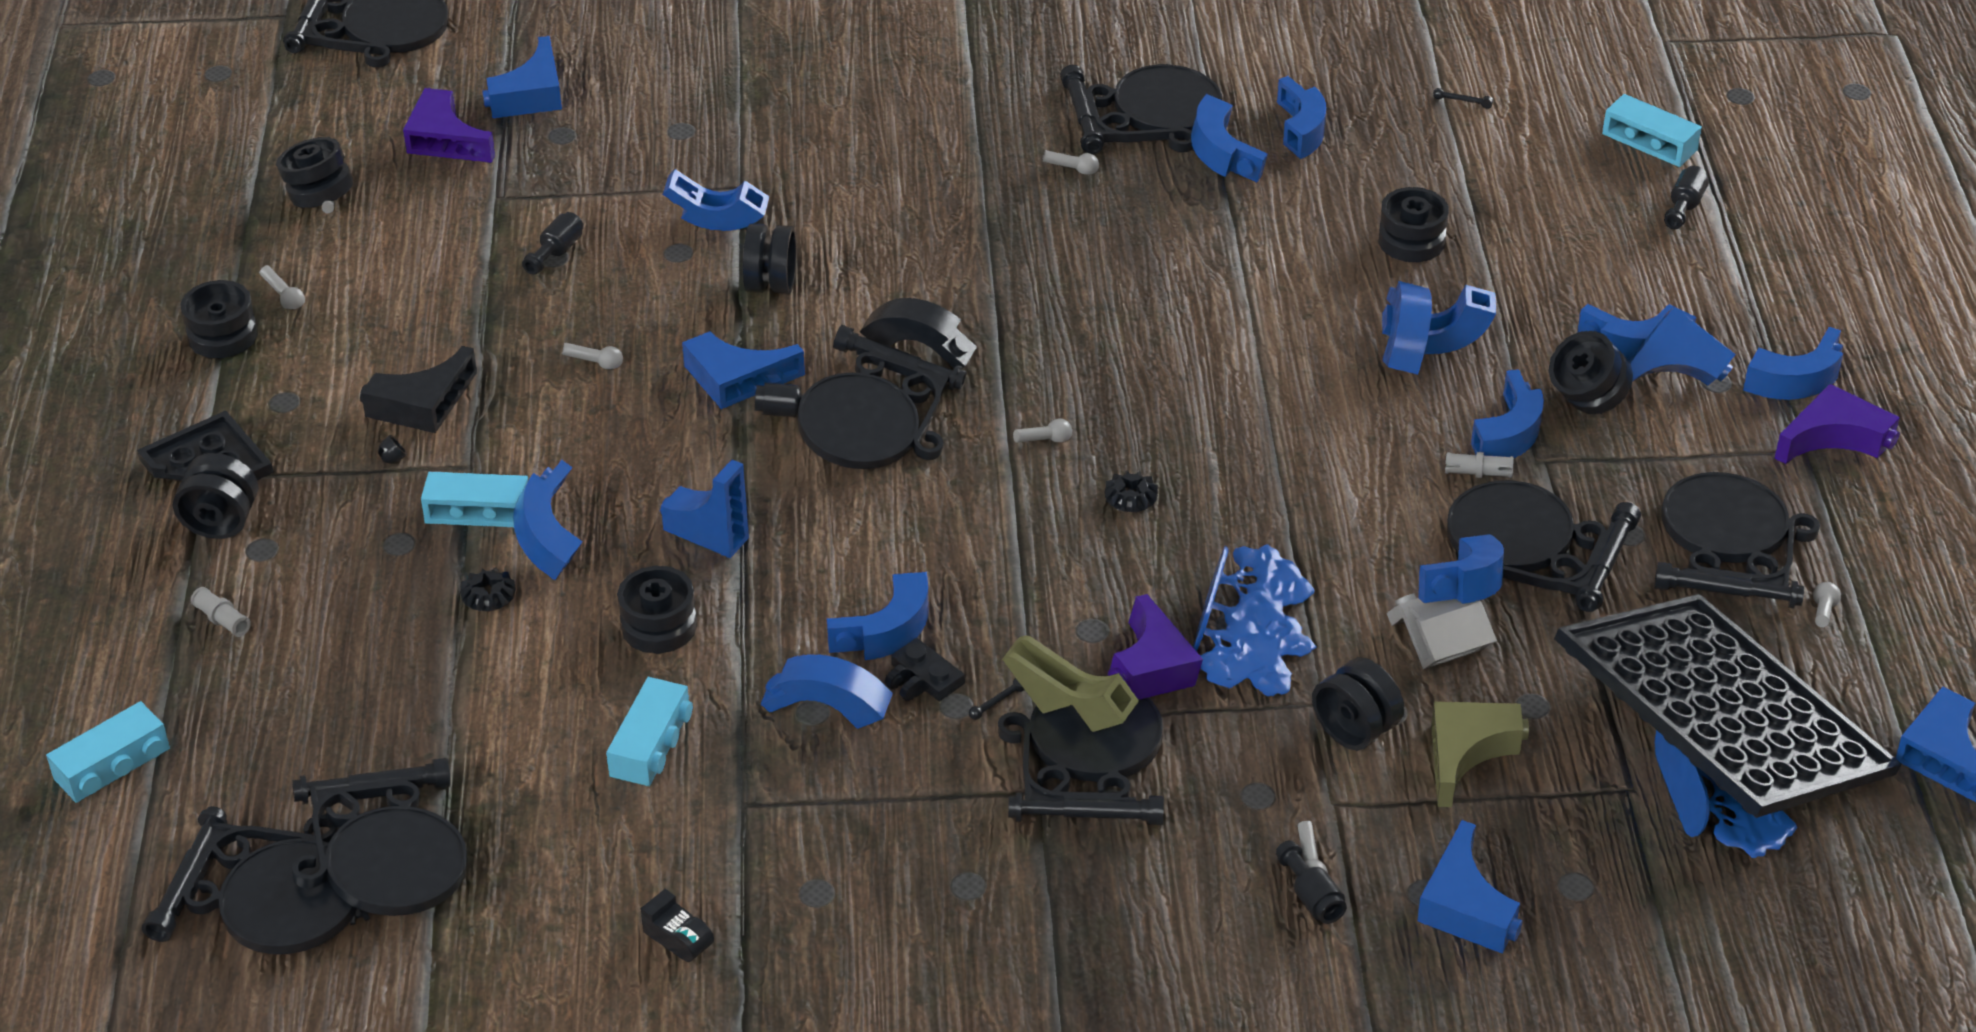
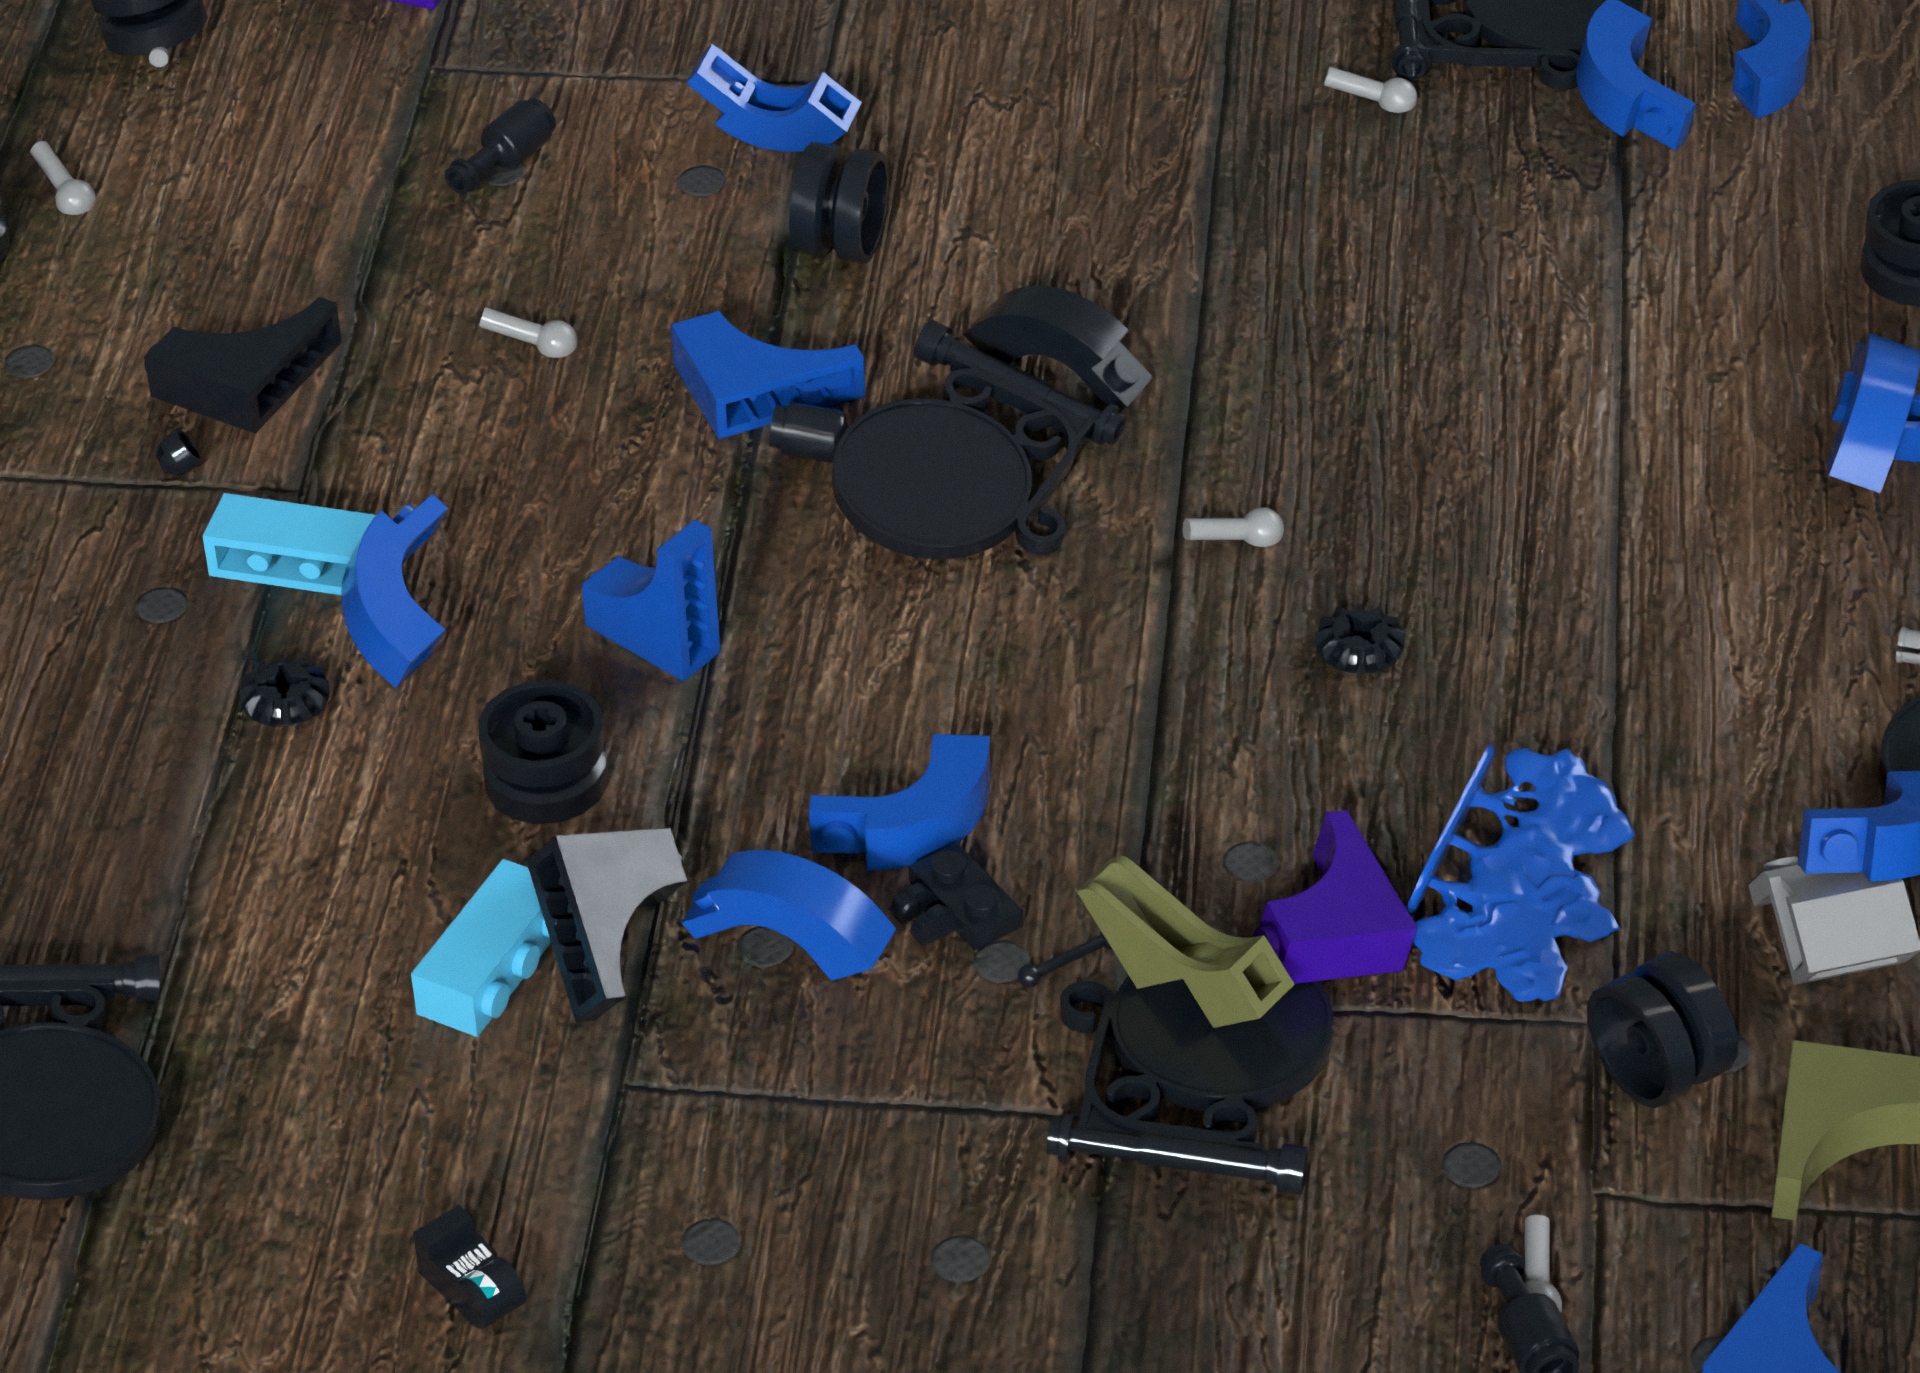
camera: 10 degrees right, 0 degrees up
(706, 694) = (586, 898): none -> arch

